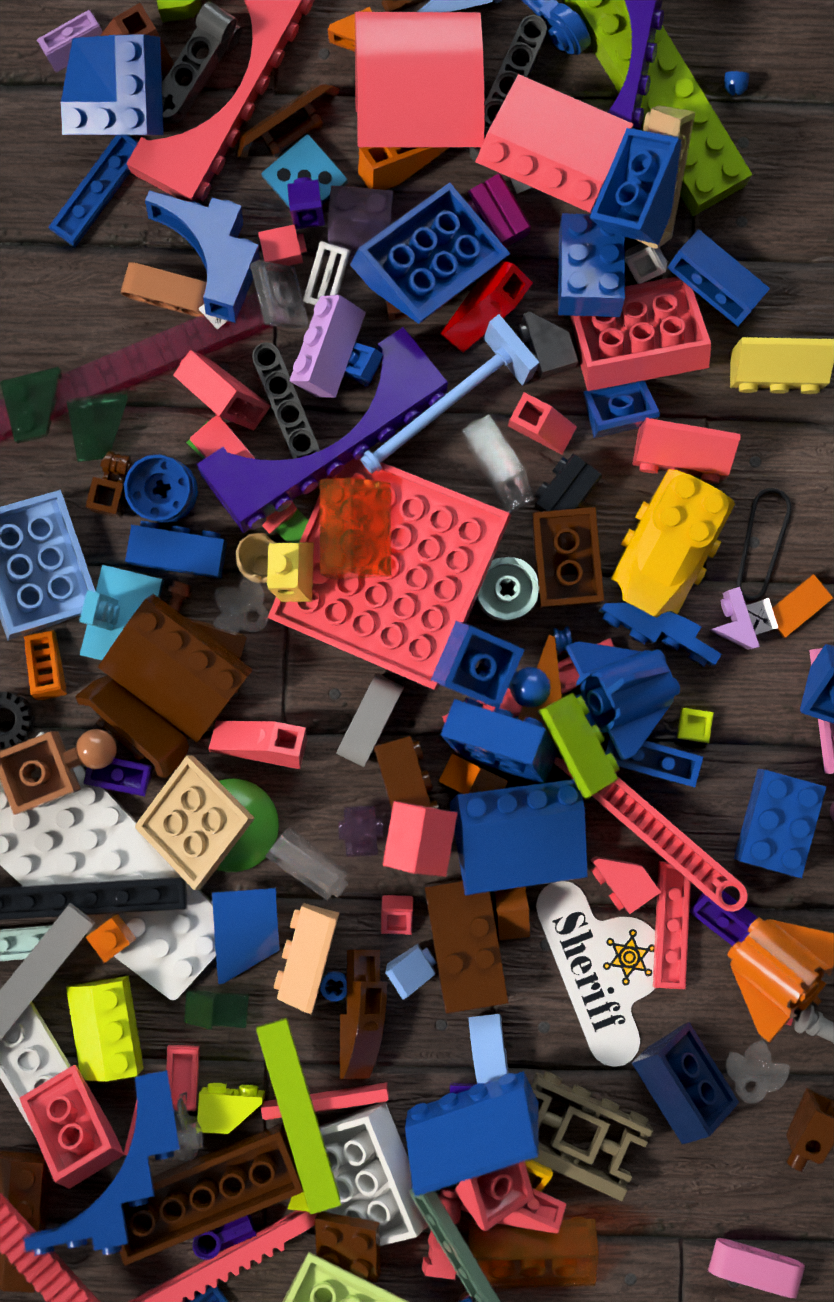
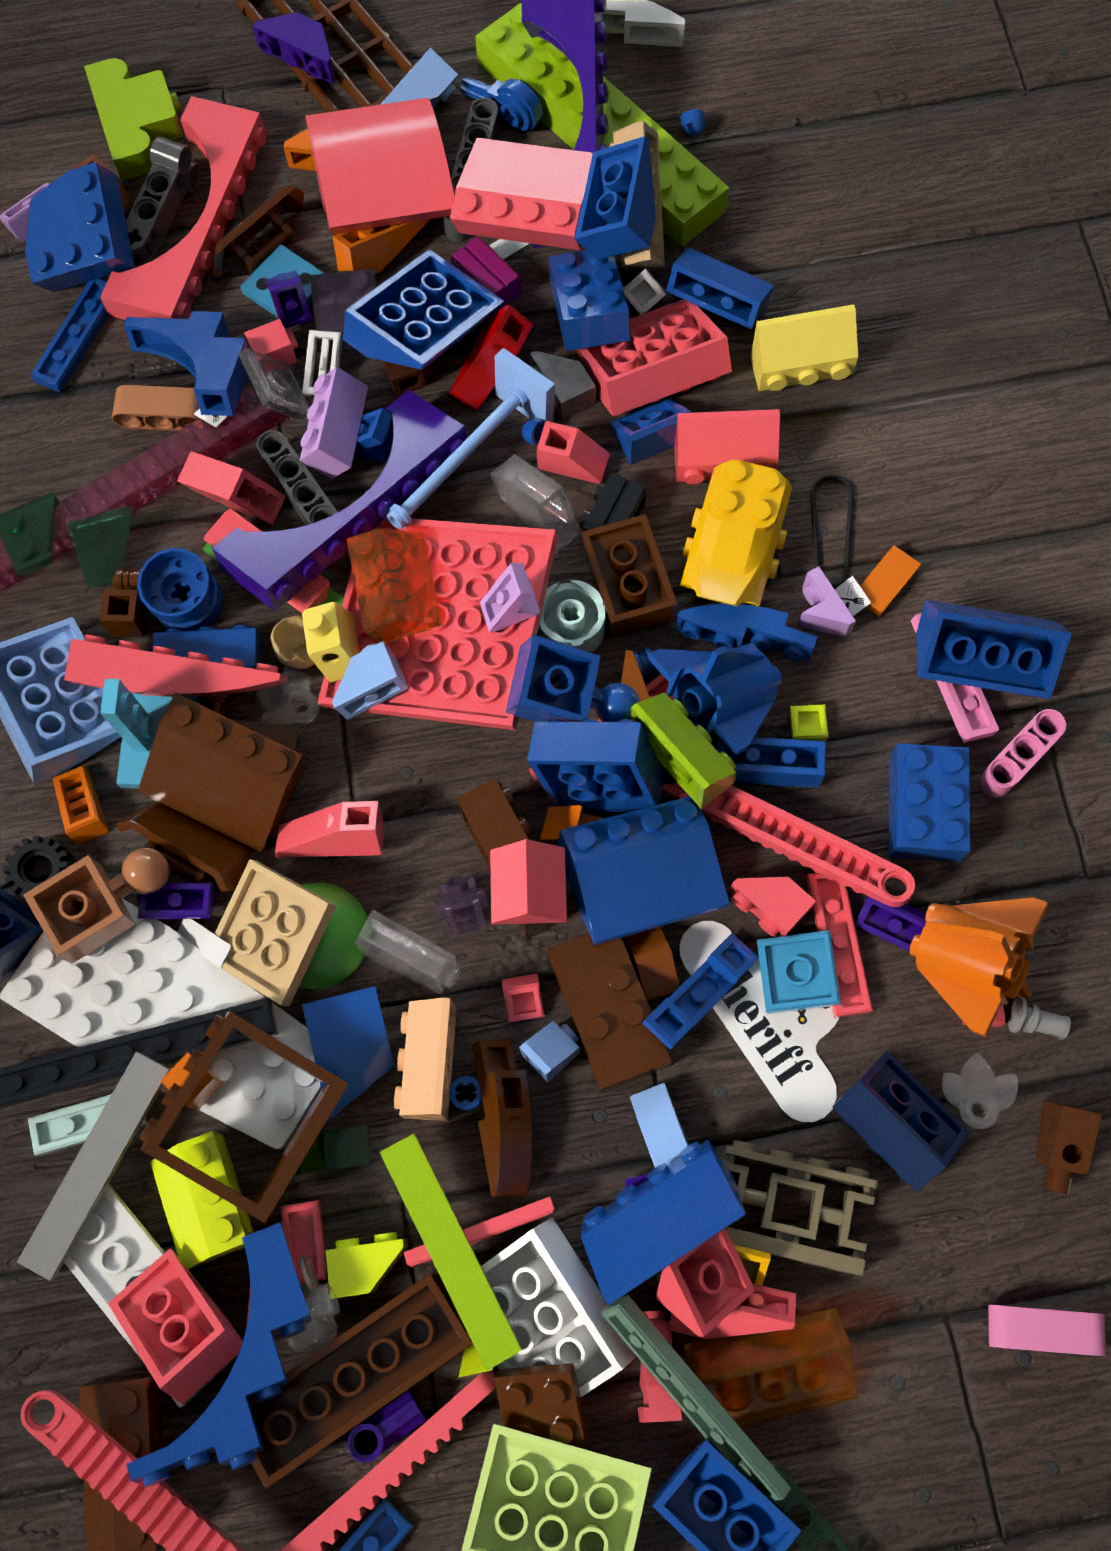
camera: 10 degrees left, 15 degrees down
(134, 569) = (162, 672): none -> coral slope
(141, 819) = (210, 945): none -> white sticker
(187, 1013) = (296, 1149): none -> reddish brown window
(318, 615) = (369, 680): none -> light blue slope
(370, 720) = (450, 779): light grey beam -> none
(454, 576) = (509, 599): none -> lavender slope
(512, 389) = (532, 431): none -> blue hinge
(544, 947) = (700, 992): none -> blue slope
(631, 945) = (798, 972): none -> dark azure tile

